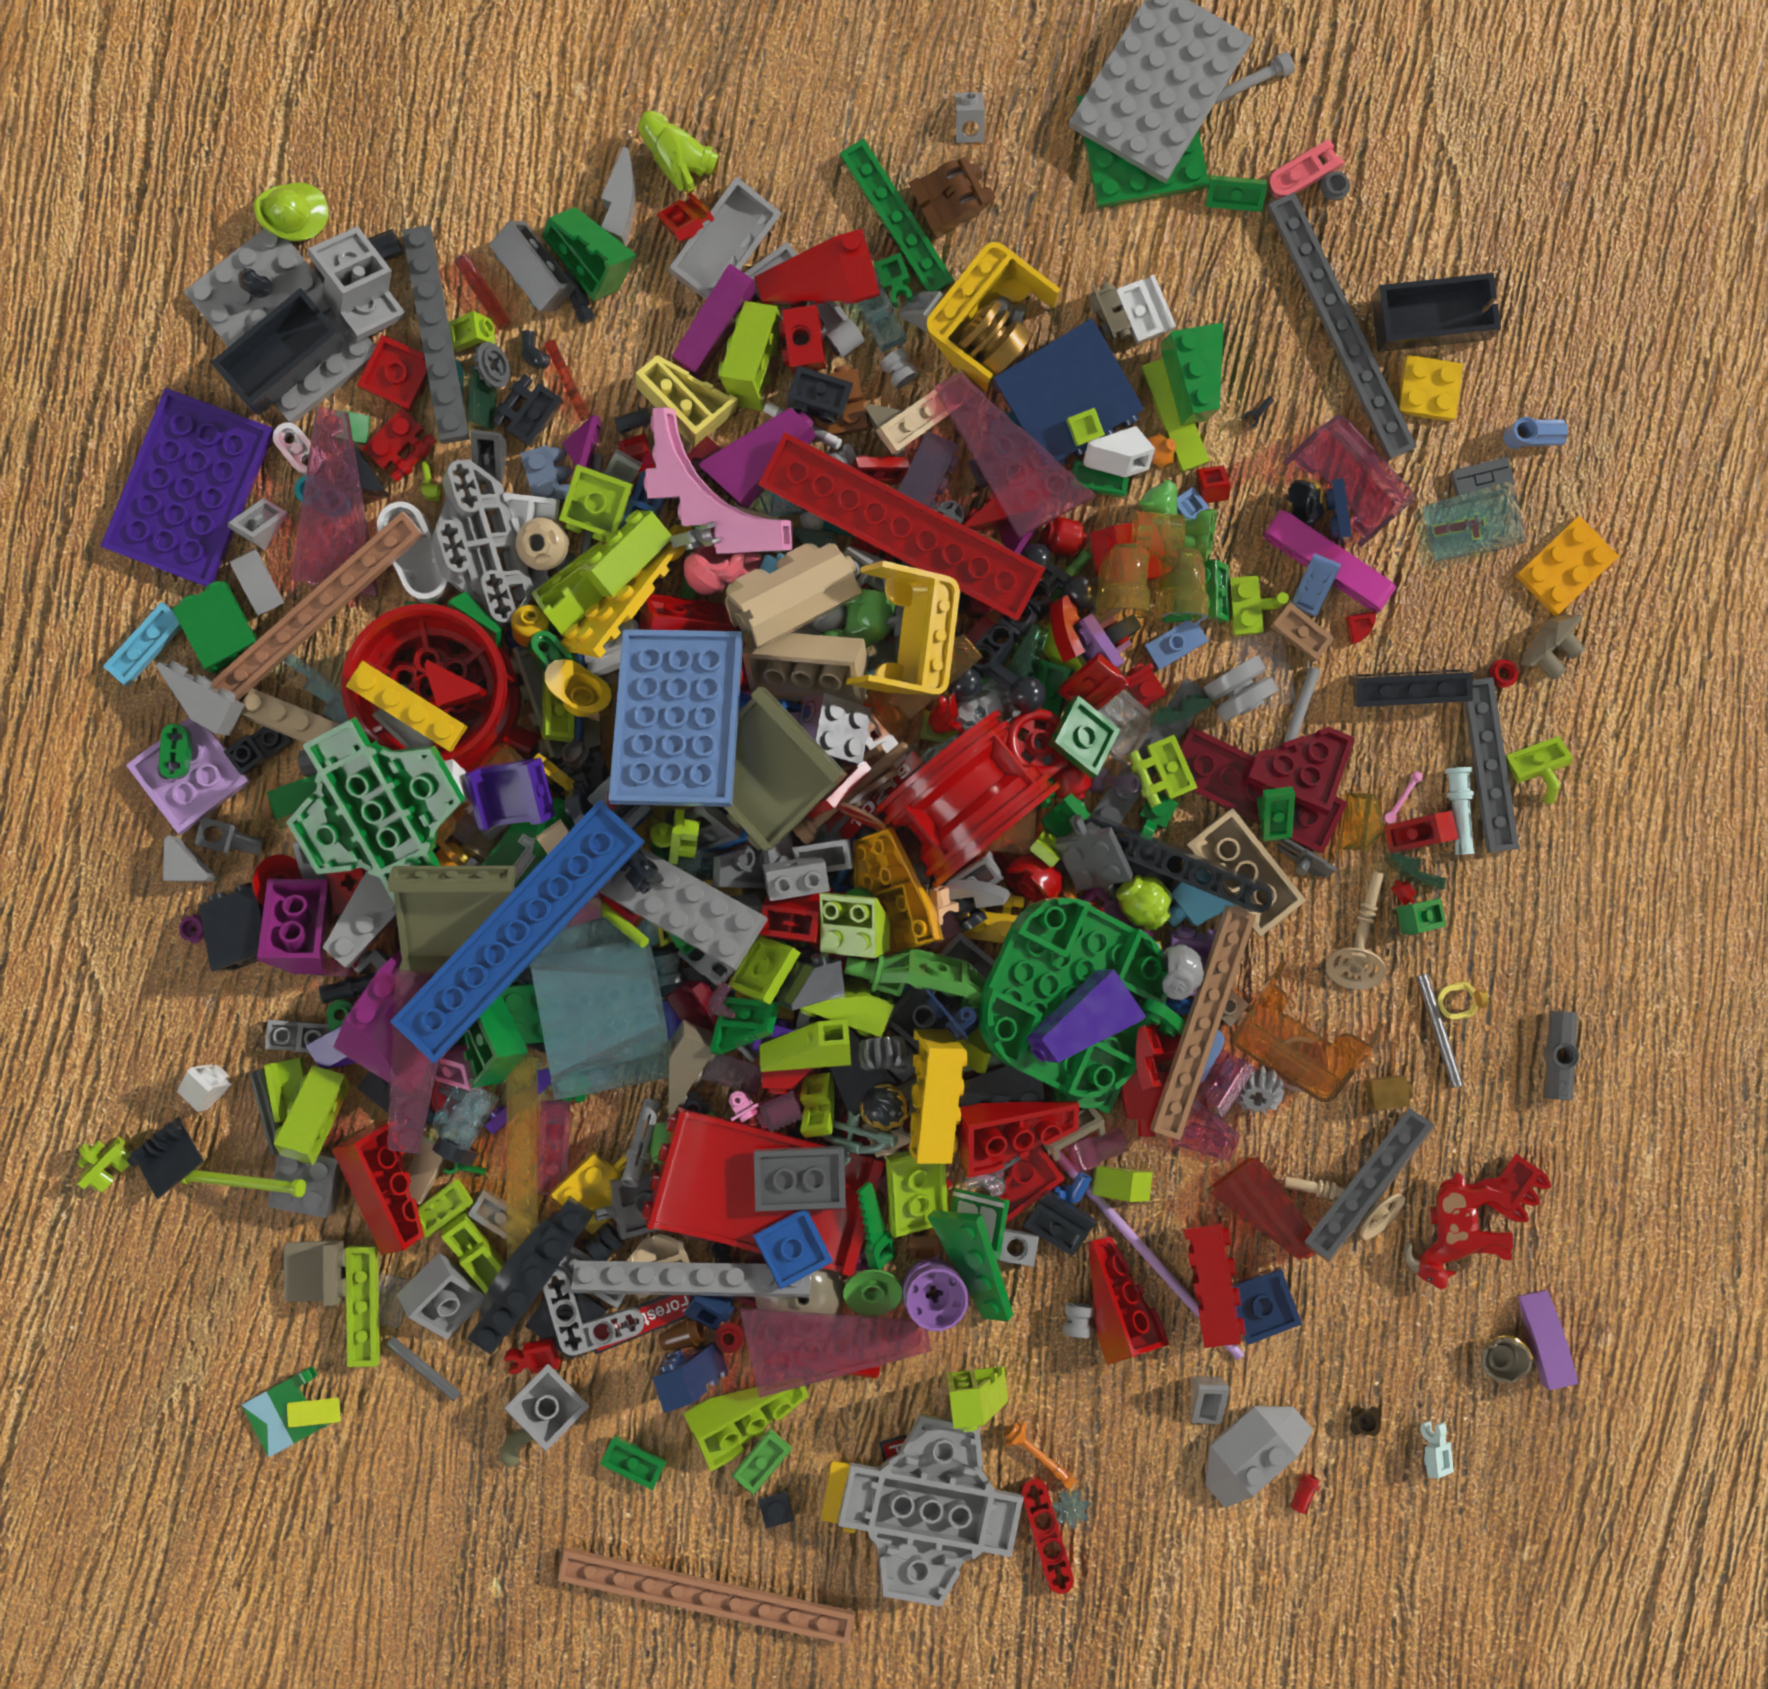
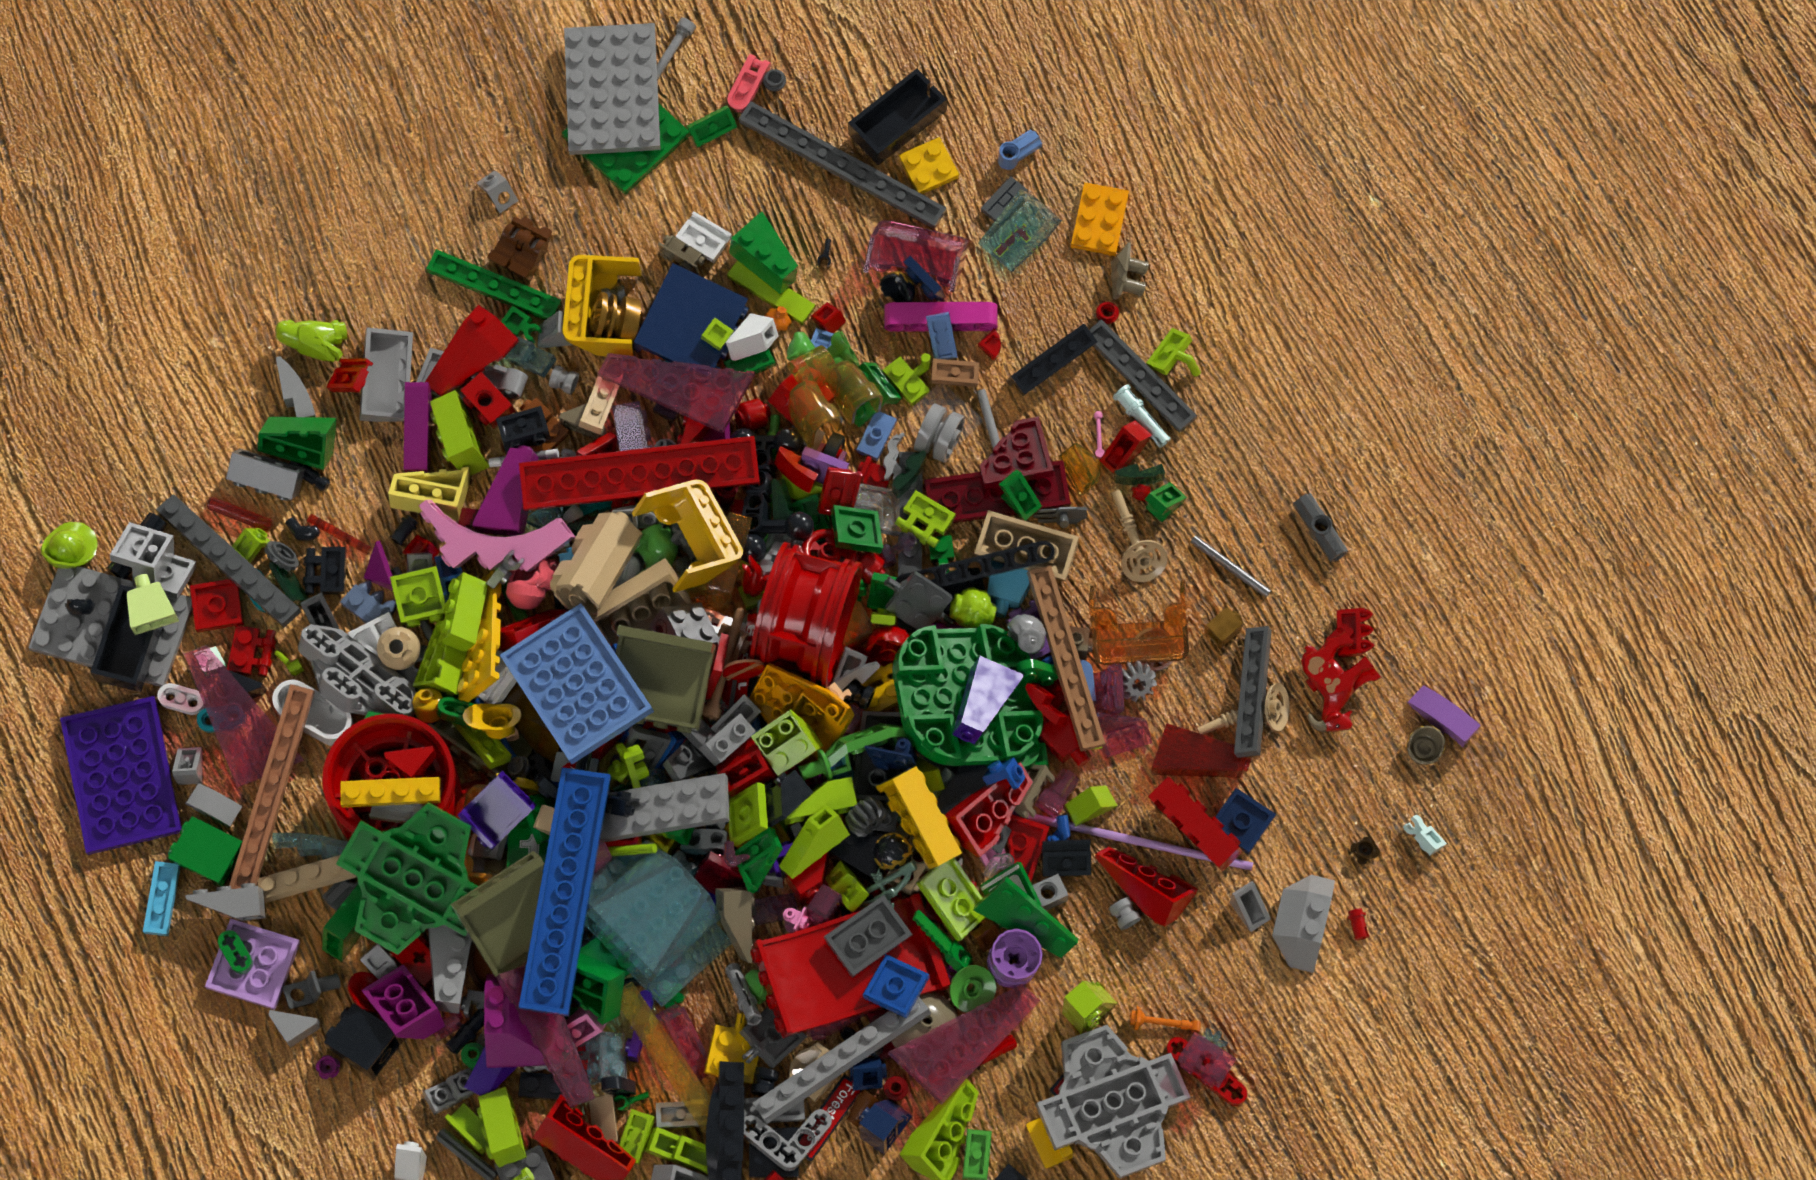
camera: 30 degrees left, 15 degrees down
(257, 749) = (290, 915): black slope -> none
(309, 331) = (149, 606): none -> yellowish green torso
(1054, 1105) = (1005, 770): none -> blue bracket
(1057, 1551) = (1199, 1049): none -> clear pink brick
(1168, 685) = (890, 463): none -> light grey hair
(1480, 1000) = (1237, 524): light yellow piece -> none

